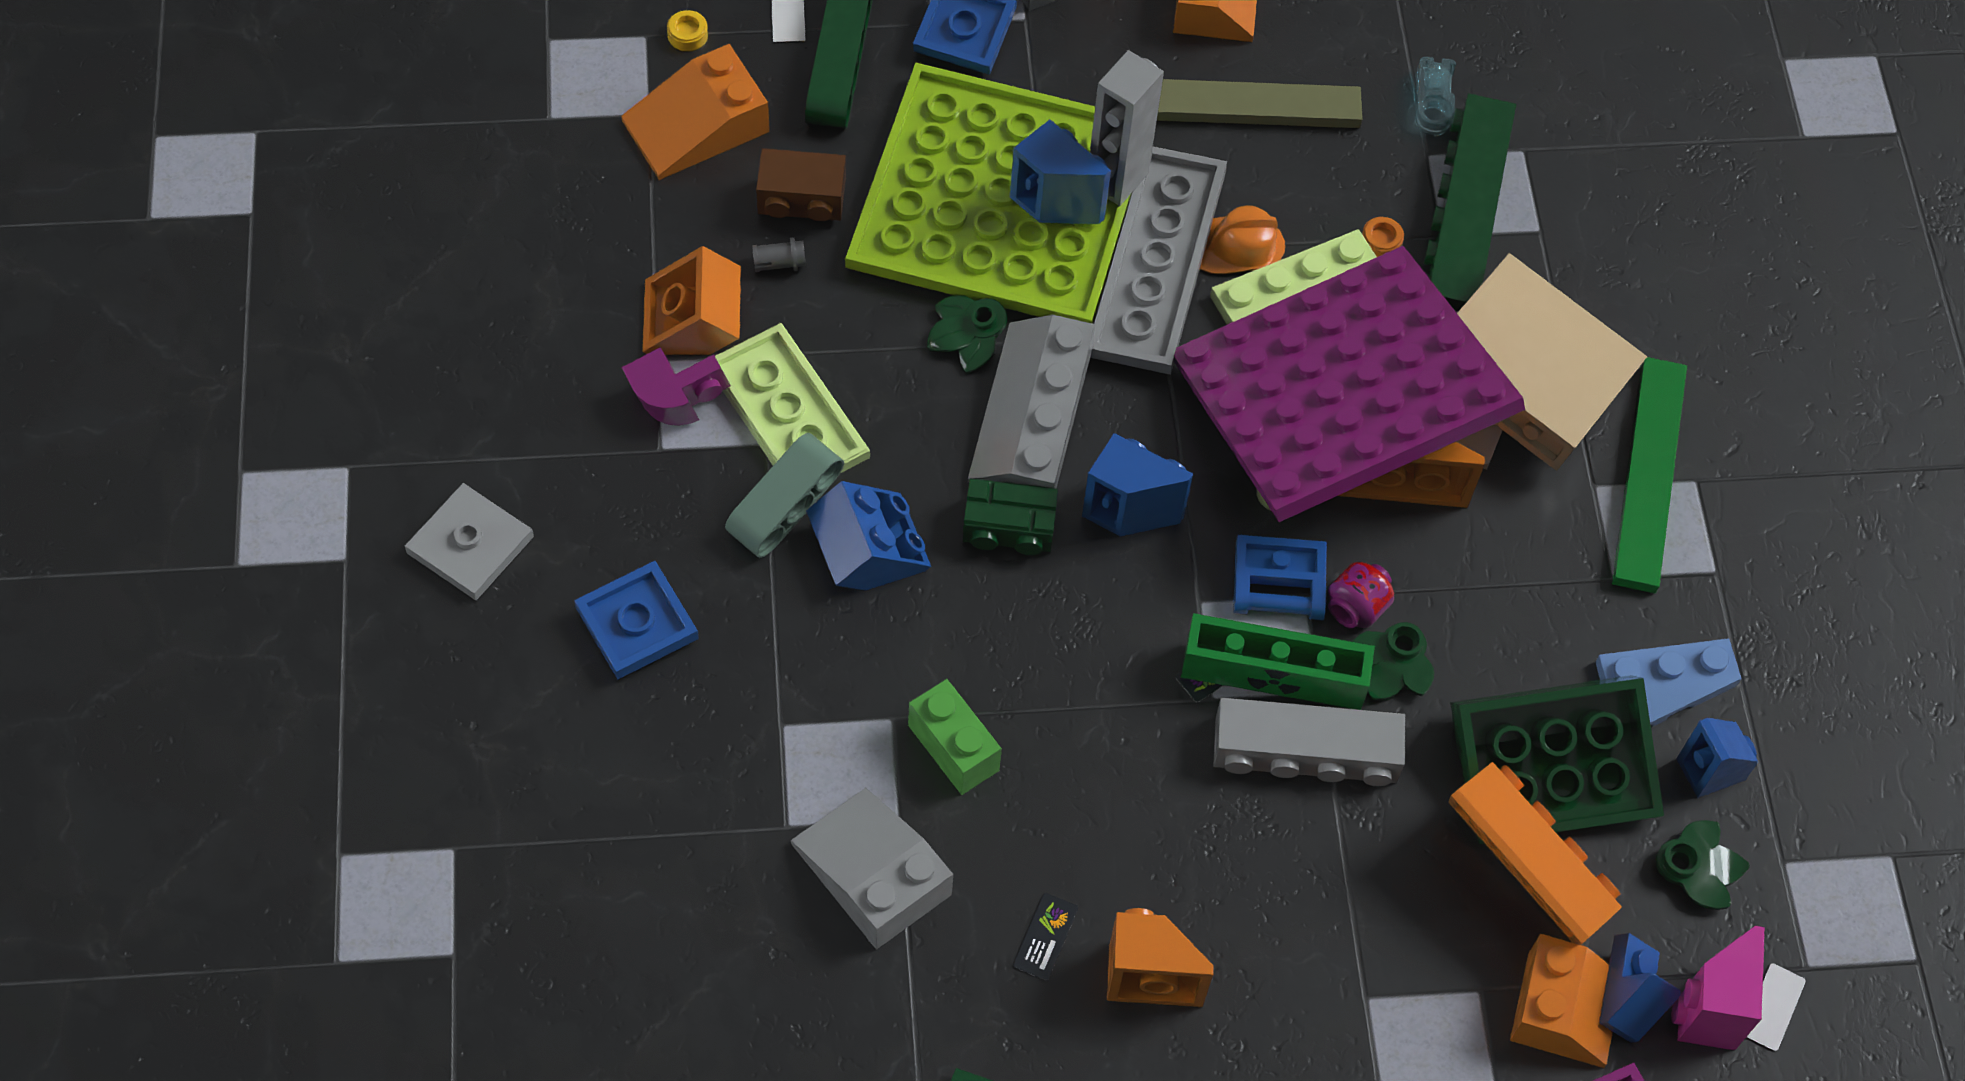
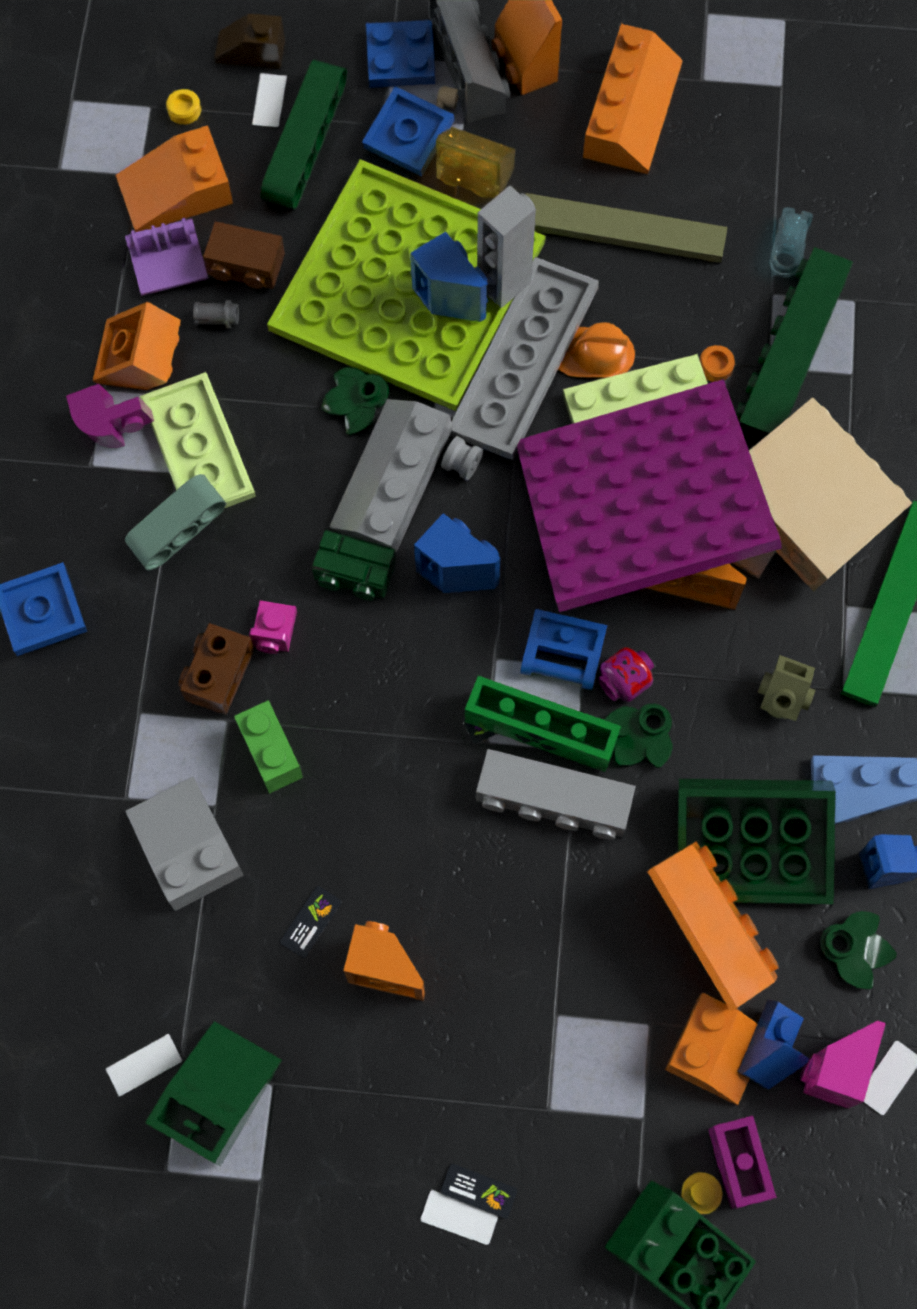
camera: 15 degrees right, 10 degrees up
(704, 198) = (166, 256): none -> medium lavender hinge
(867, 536) = (236, 566): blue slope -> none
(871, 655) = (216, 668): none -> reddish brown brick
(926, 601) = (273, 627): none -> dark pink bracket
(1051, 51) = (473, 162): none -> clear yellow slope
(1111, 379) = (462, 458): none -> light grey wheel
(1553, 582) = (787, 689): none -> olive brick

